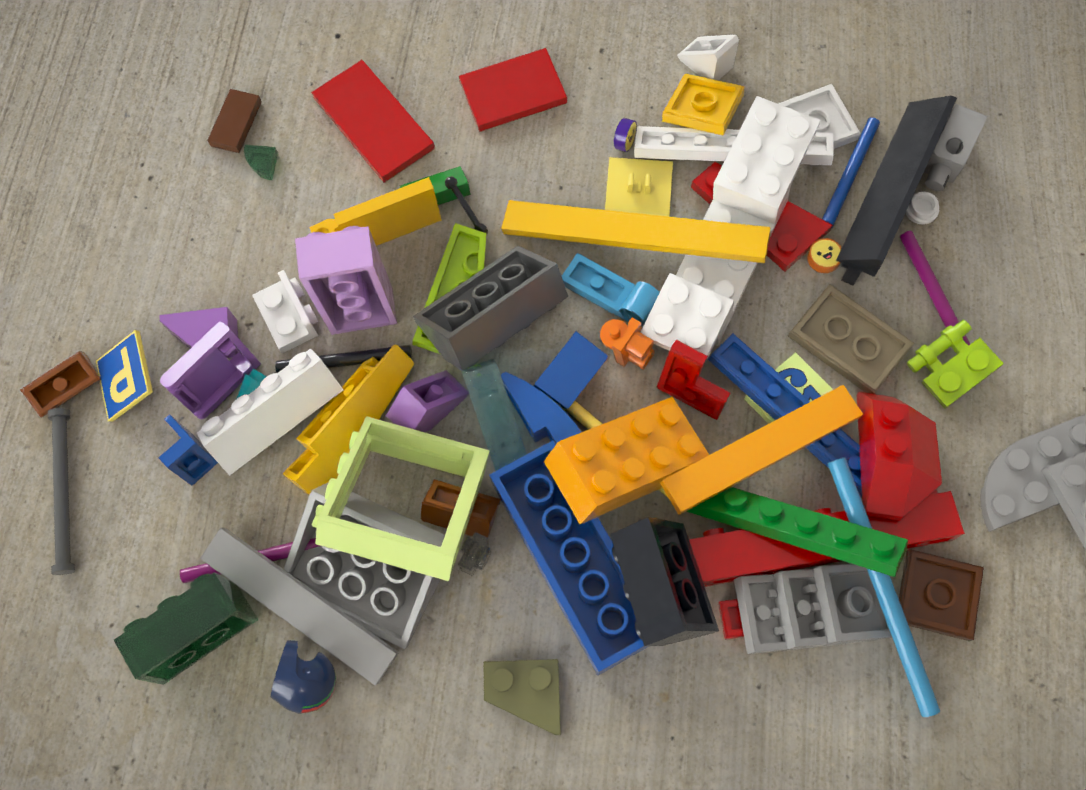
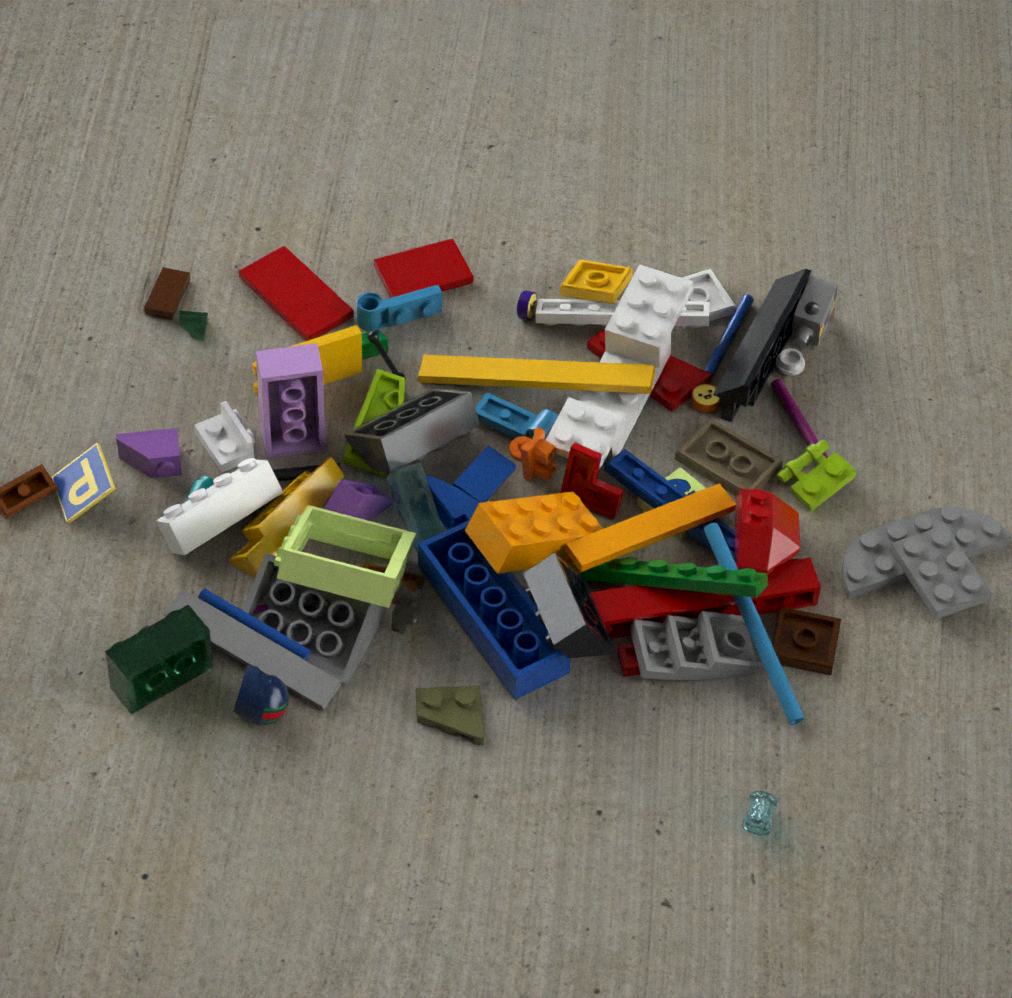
camera: 10 degrees left, 20 degrees down
(61, 492) = (36, 626): dark grey bar -> none
(188, 455) = (150, 534): blue panel -> none
(205, 375) = (158, 476): medium lavender container -> none
(301, 575) = (253, 623): none -> blue bar
(481, 142) = (377, 313): none -> dark azure plate
(639, 186) = (540, 342): light yellow piece -> none
(710, 55) = (603, 245): white slope -> none

